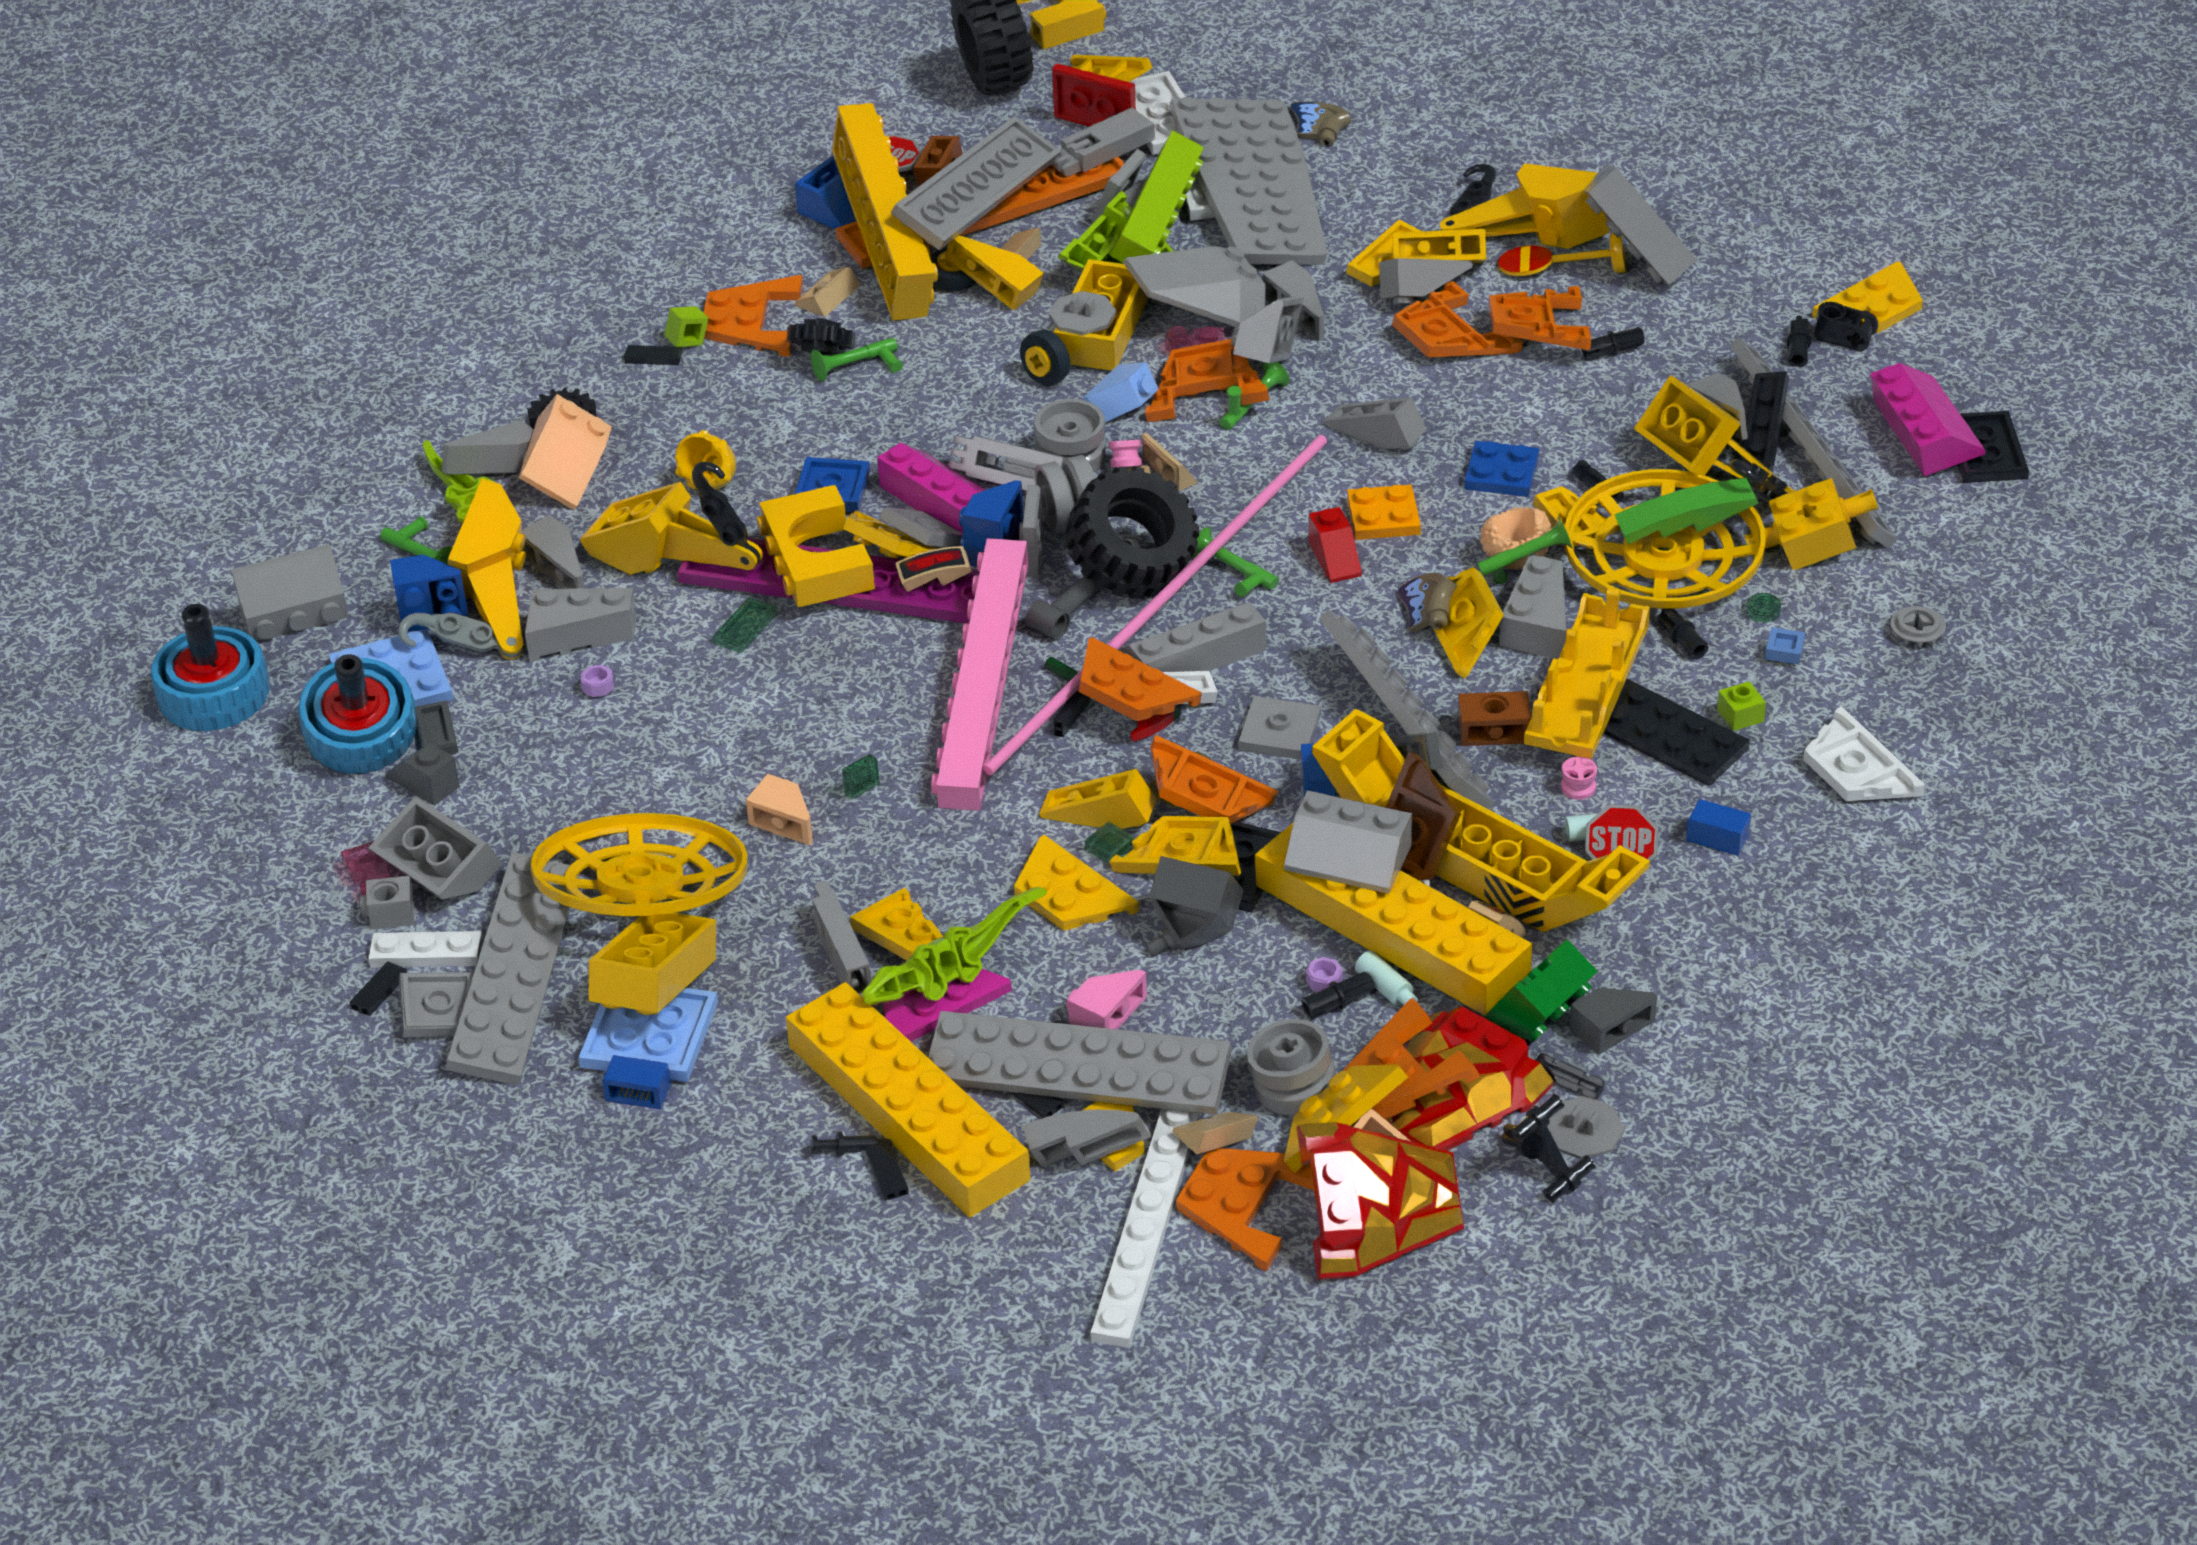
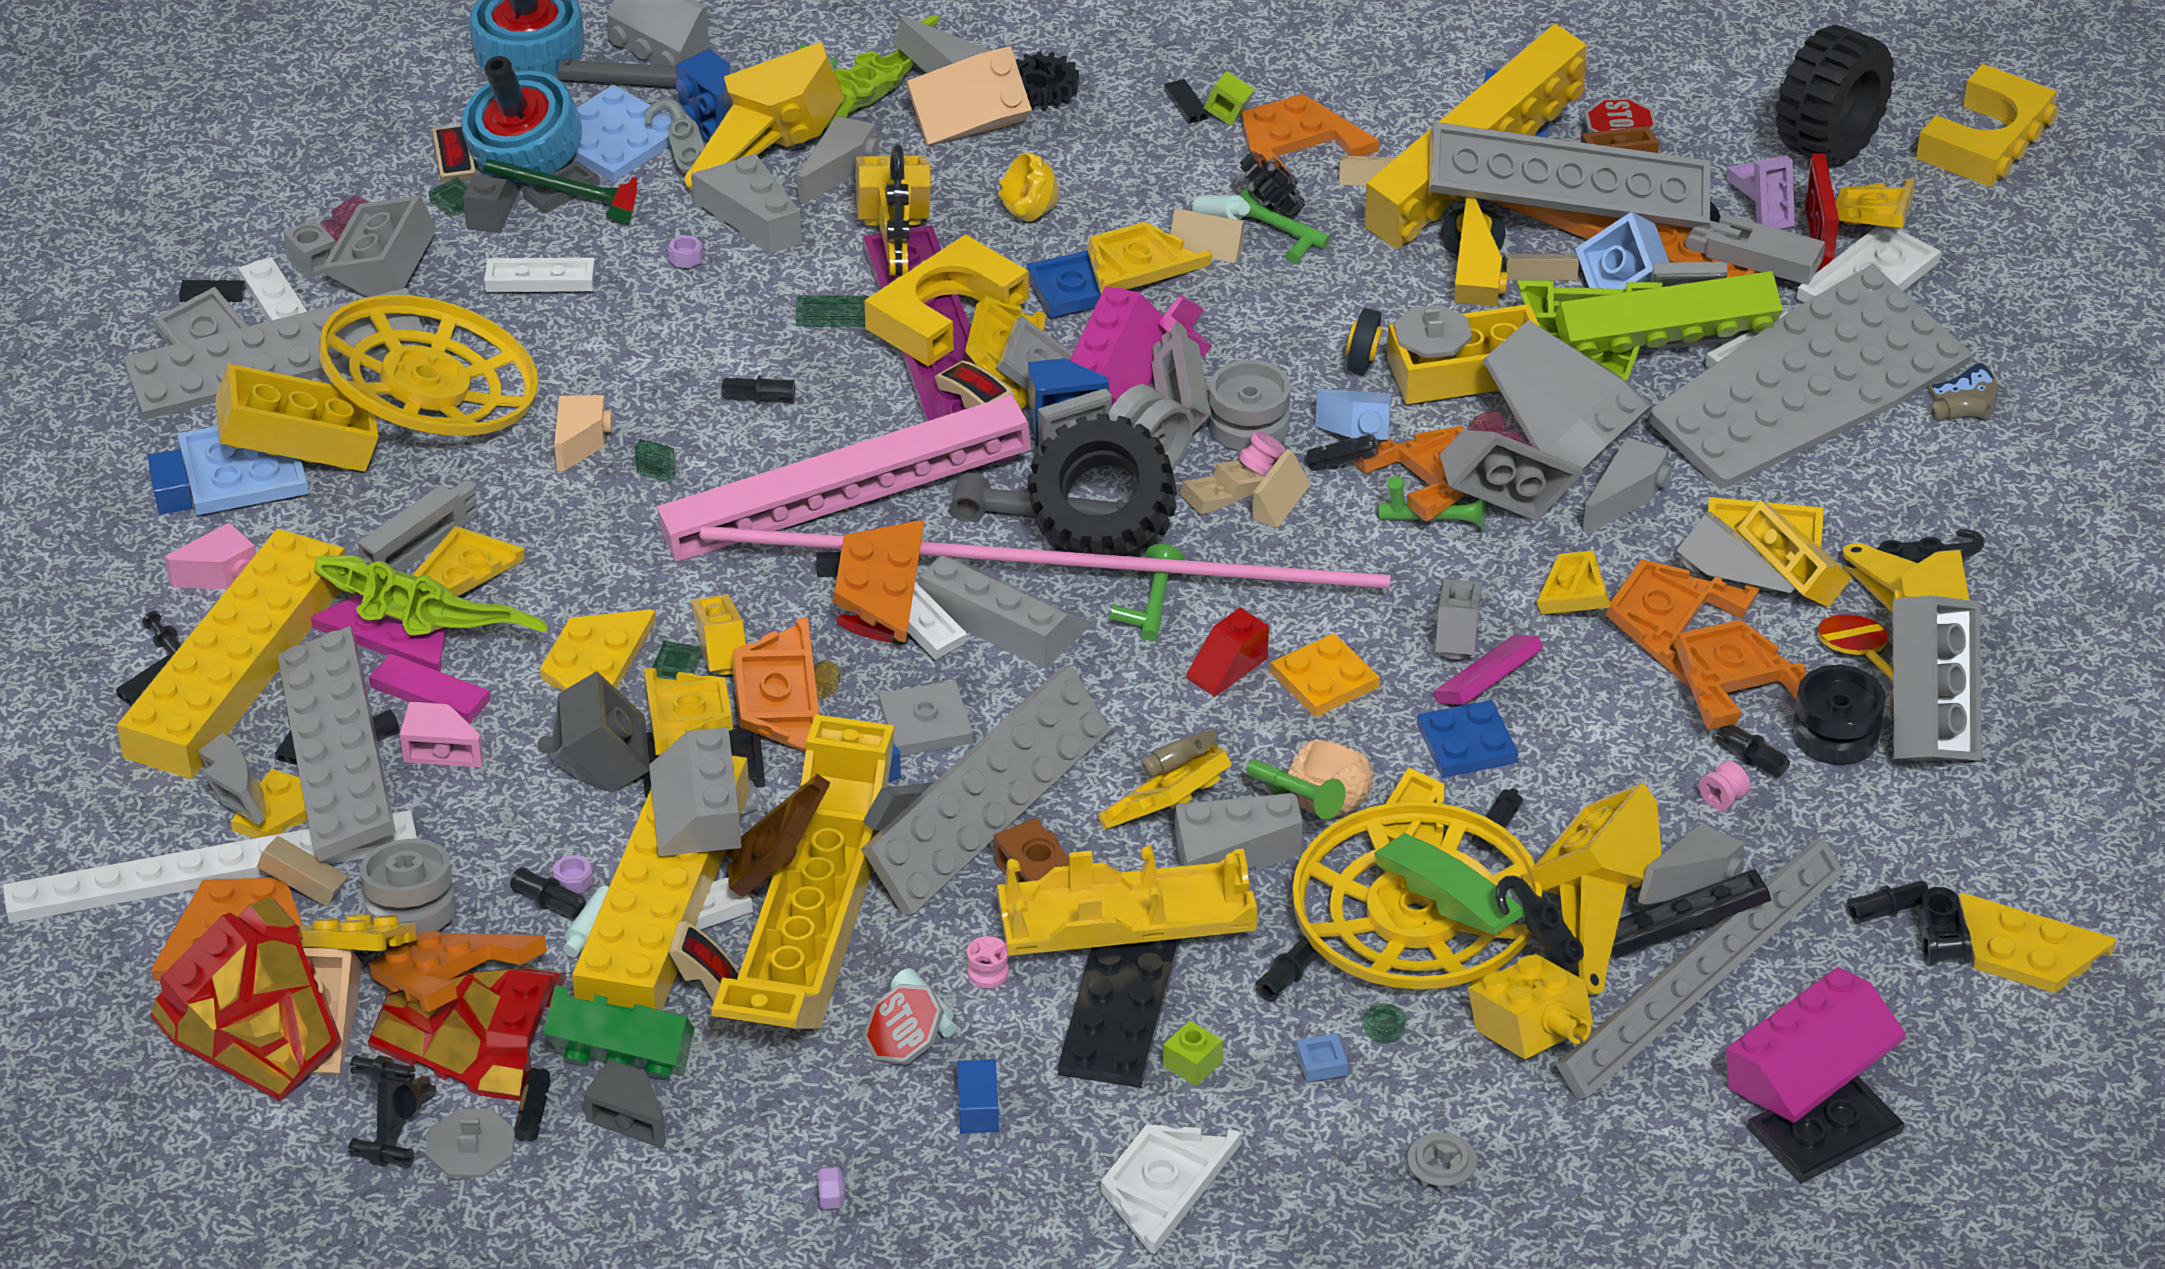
camera: 60 degrees right, 0 degrees up
(319, 774) = (452, 154): none -> slope
(366, 599) = (617, 73): none -> dark grey piece
(387, 797) = (449, 196): none -> clear green tile
(485, 698) = (619, 199): none -> dark green piece
(551, 774) = (539, 274): none -> white plate
(773, 1078) = (210, 560): none -> bright pink slope
(814, 693) = (759, 389): none -> black axle
(821, 373) = (1222, 205): none -> light aqua cylinder
(838, 397) = (1209, 232): none -> tan slope
(839, 437) = (1140, 256): none -> yellow wing
(939, 446) = (1186, 313): none -> dark pink bracket
(1035, 994) = (425, 685): none -> dark pink tile
(1044, 113) = (1770, 186): none -> lavender bracket
(1063, 206) = (1622, 253): none -> light blue slope
(1157, 412) = (1342, 452): none -> black axle
(1389, 357) = (1574, 585): none -> yellow wing
(1444, 431) = (1488, 669): none -> dark pink tile
(1616, 288) = (1838, 714): none -> black wheel
(1642, 367) = (1724, 785): none -> bright pink wheel
(1766, 934) = (831, 1187): none -> lavender tile

